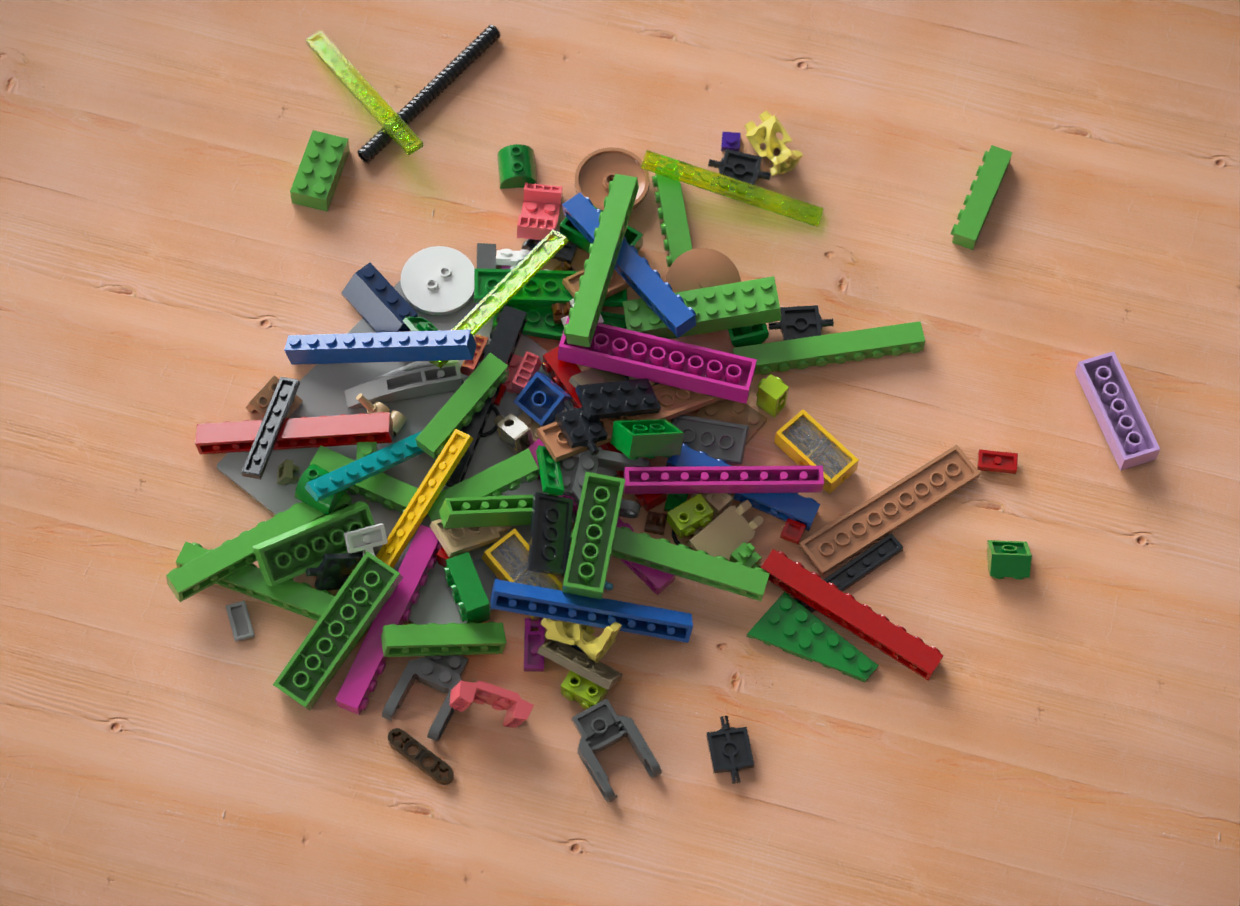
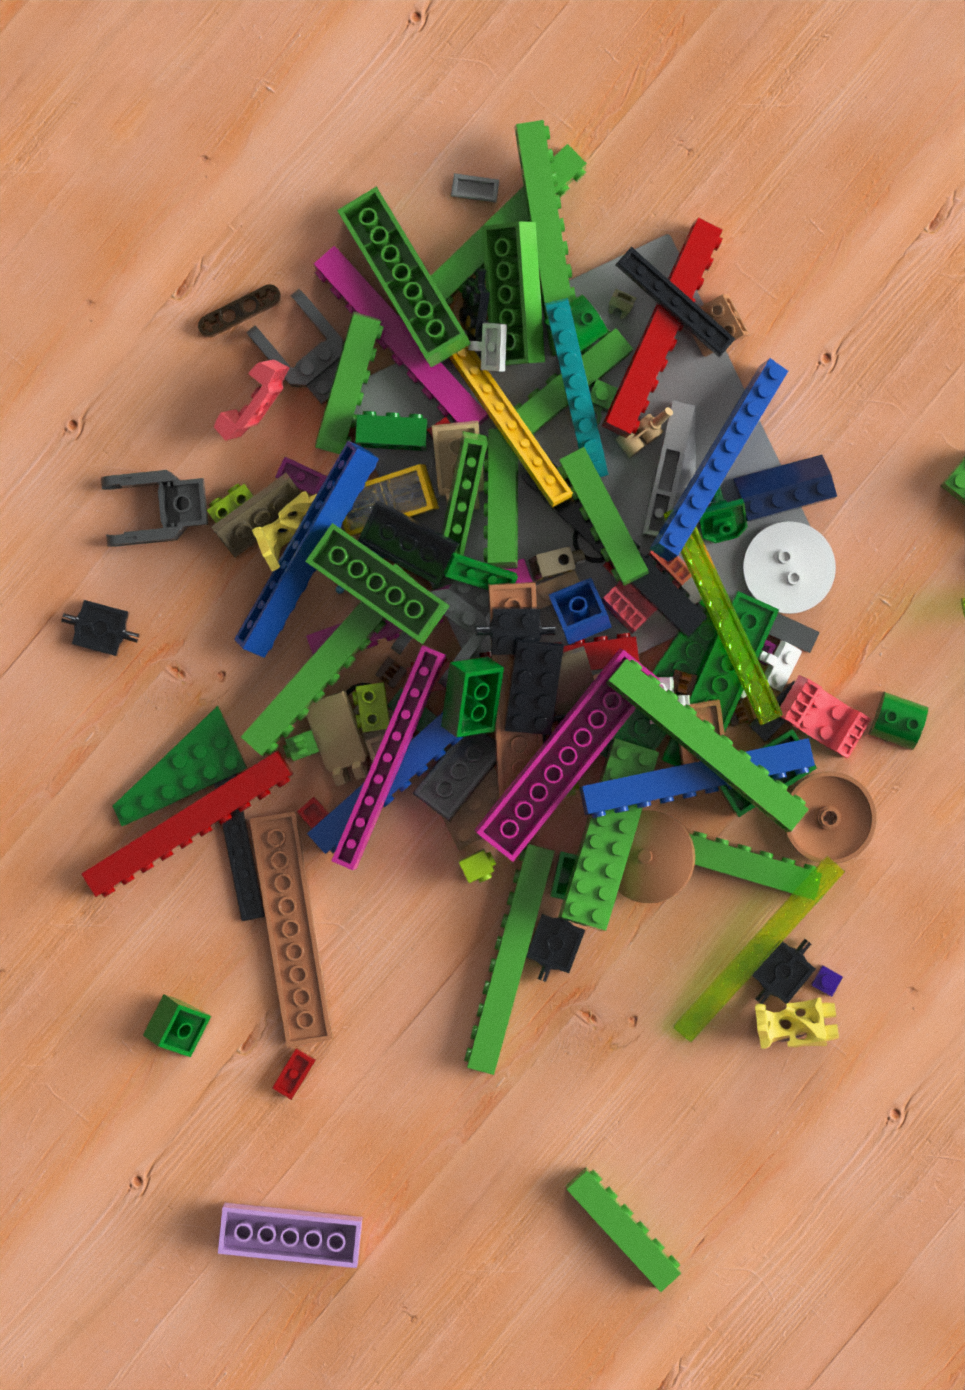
camera: 120 degrees right, 25 degrees up
(813, 445) = (390, 881): brick -> none

